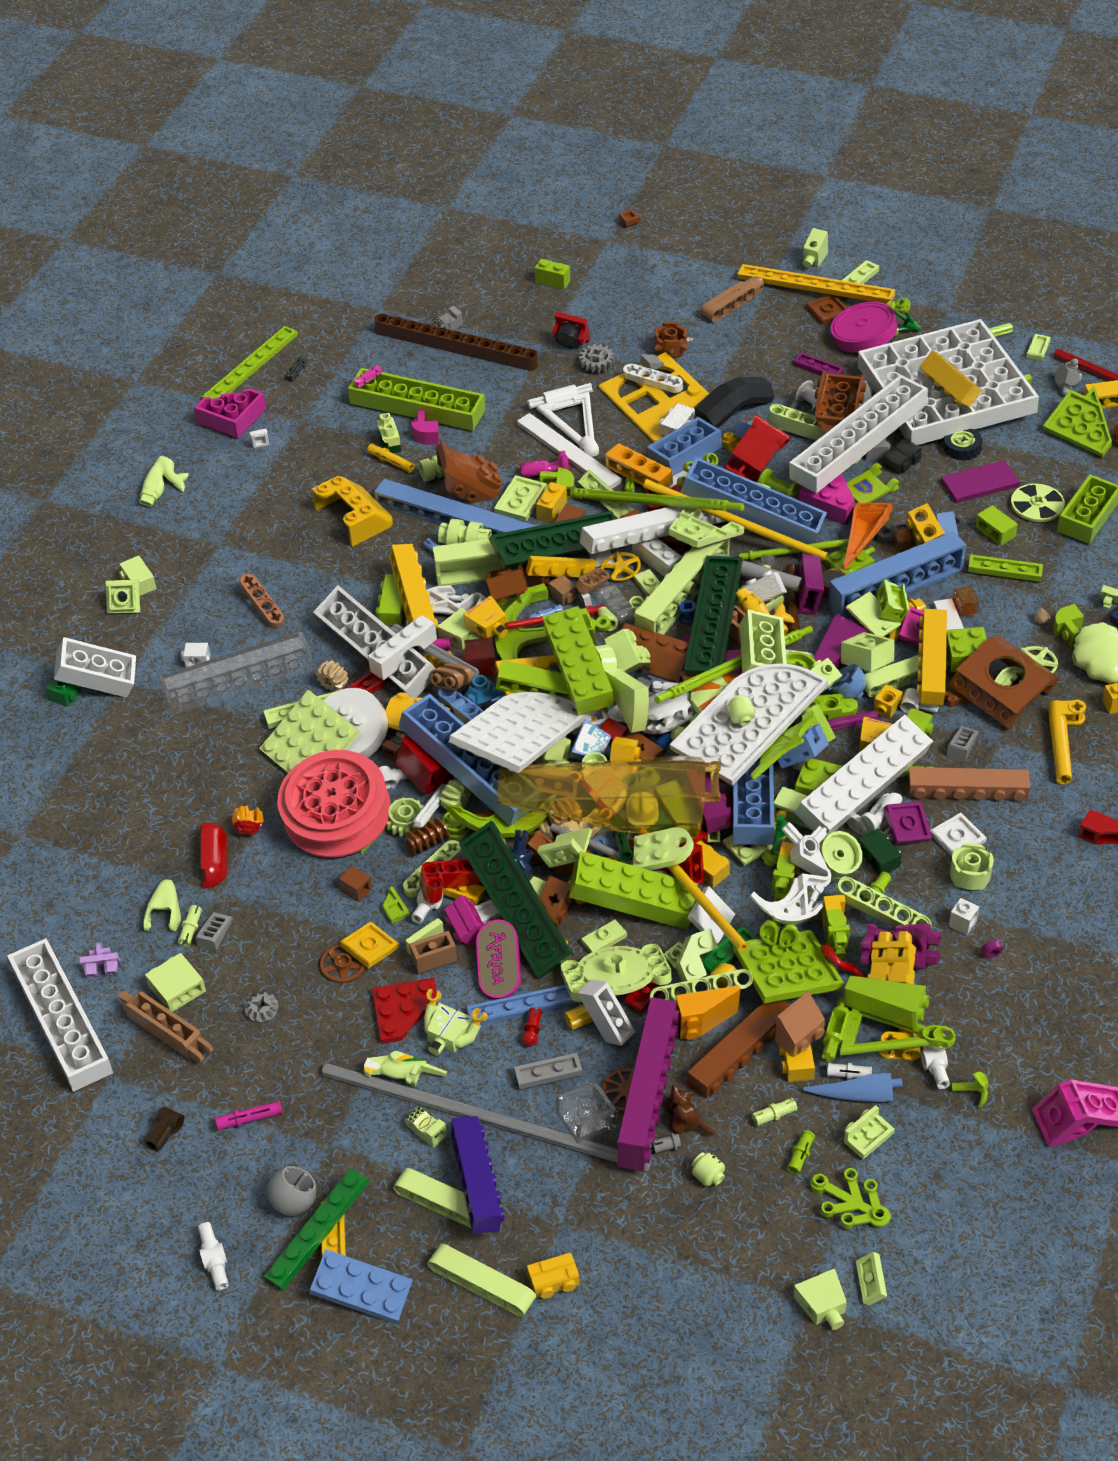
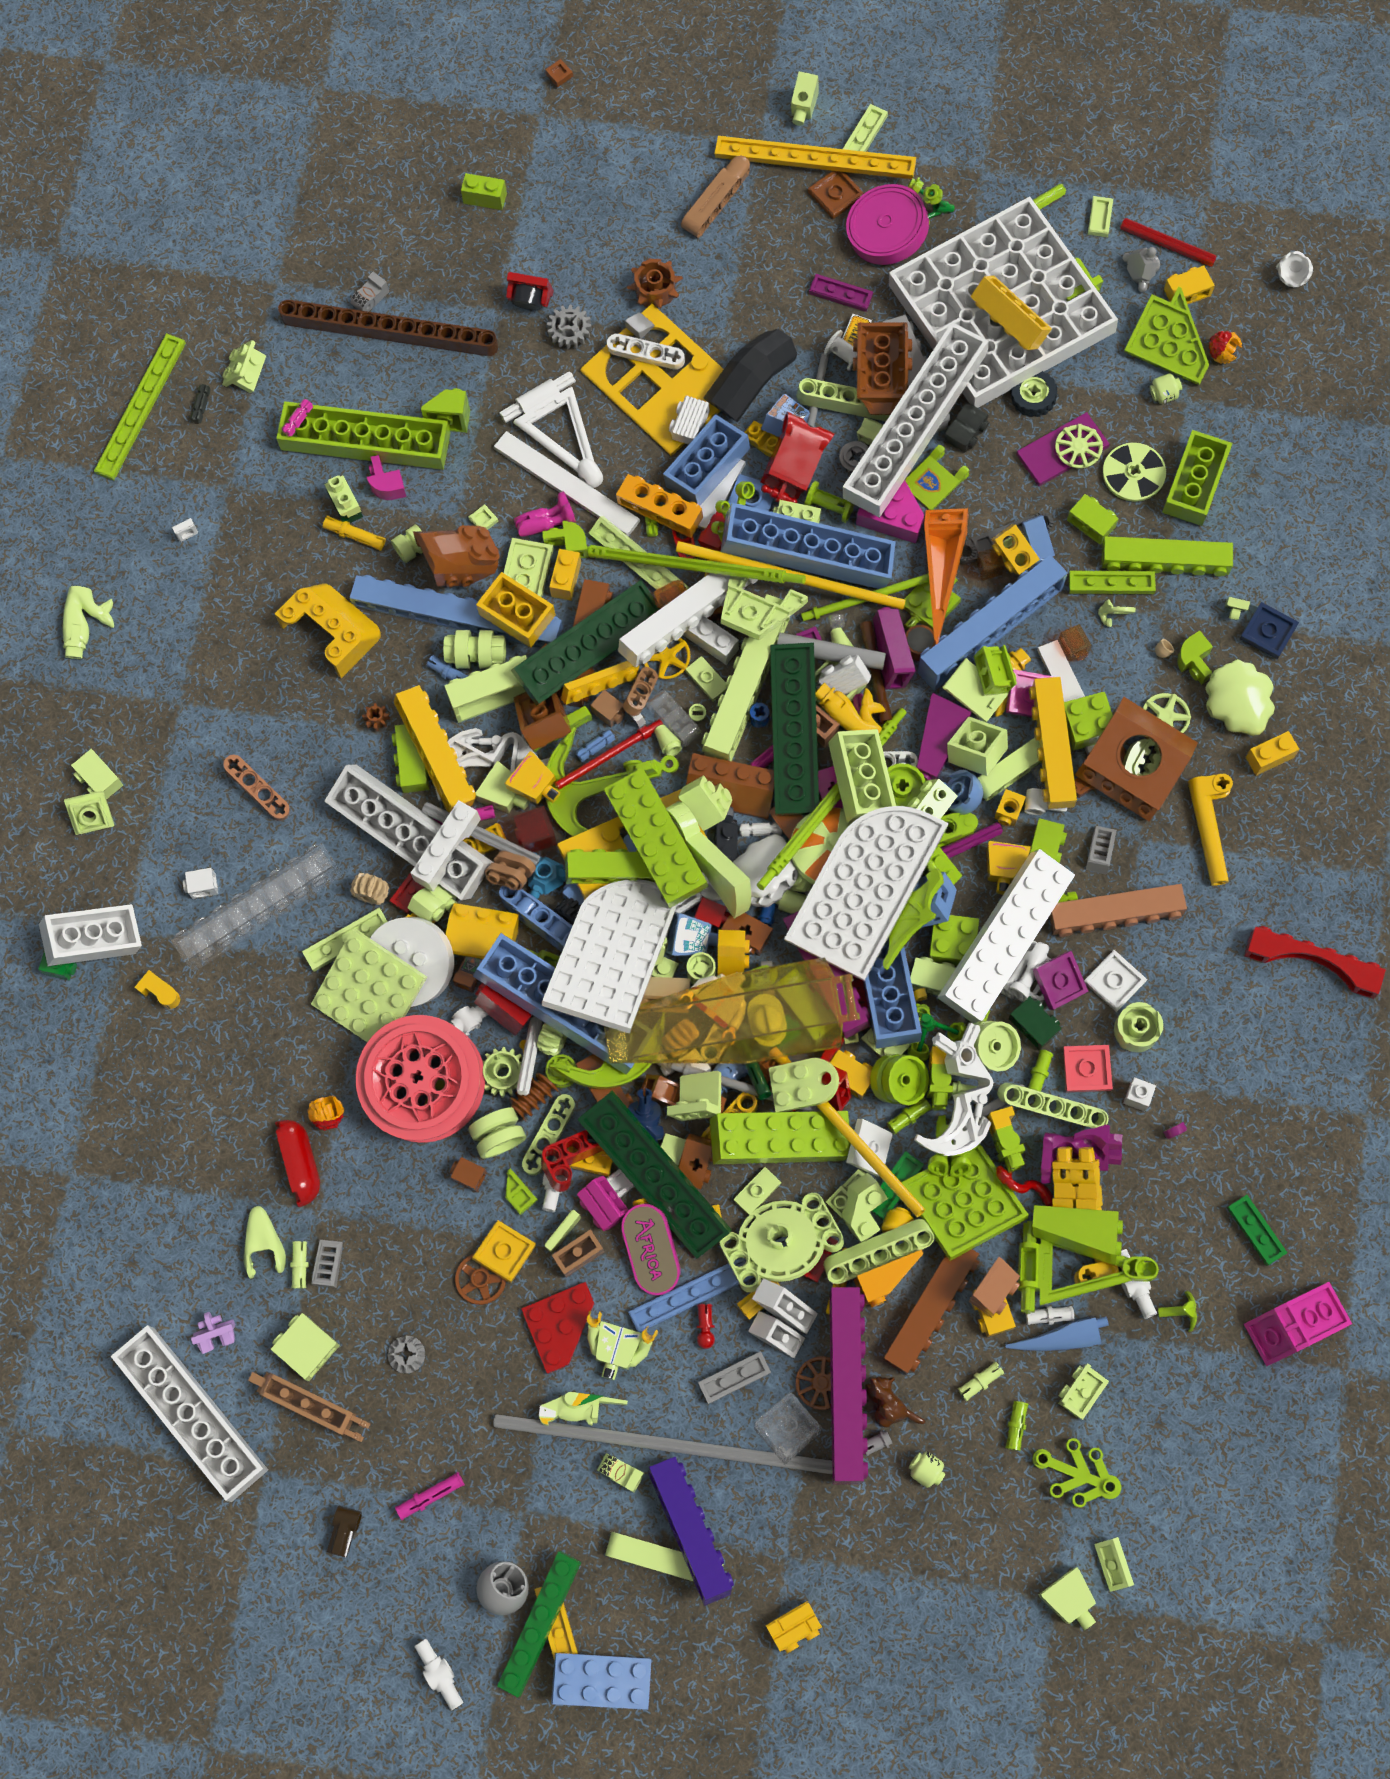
camera: 10 degrees left, 25 degrees up
(137, 718) = (165, 993): none -> yellow leg
(231, 411) = (139, 495): dark pink brick -> none
(337, 350) = (244, 367): none -> yellowish green bracket
(372, 570) = (374, 722): none -> dark orange gear
(381, 689) = (432, 904): none -> yellowish green brick
(388, 852) = (497, 1133): none -> yellowish green wheel
(481, 1280) = (721, 1646): yellowish green beam -> none
(492, 386) = (450, 407): none -> lime slope
(499, 461) = (483, 517): none -> yellowish green tile
(504, 508) = (516, 609): none -> yellow brick
(594, 1042) = (776, 1334): none -> white slope
(741, 710) = (858, 886): yellowish green head -> none
(748, 867) = (899, 1079): none -> lime wheel
(748, 904) = (908, 1116): none -> lime pin
(921, 892) = (1087, 1068): none -> coral plate
(993, 478) = (1079, 445): none -> yellowish green wheel
(999, 585) = (1107, 608): none -> yellowish green piece
(1056, 1036) = (1257, 1230): none -> green plate
(1057, 555) = (1167, 555): none -> lime brick
(1073, 453) = (1165, 388): none -> yellowish green head

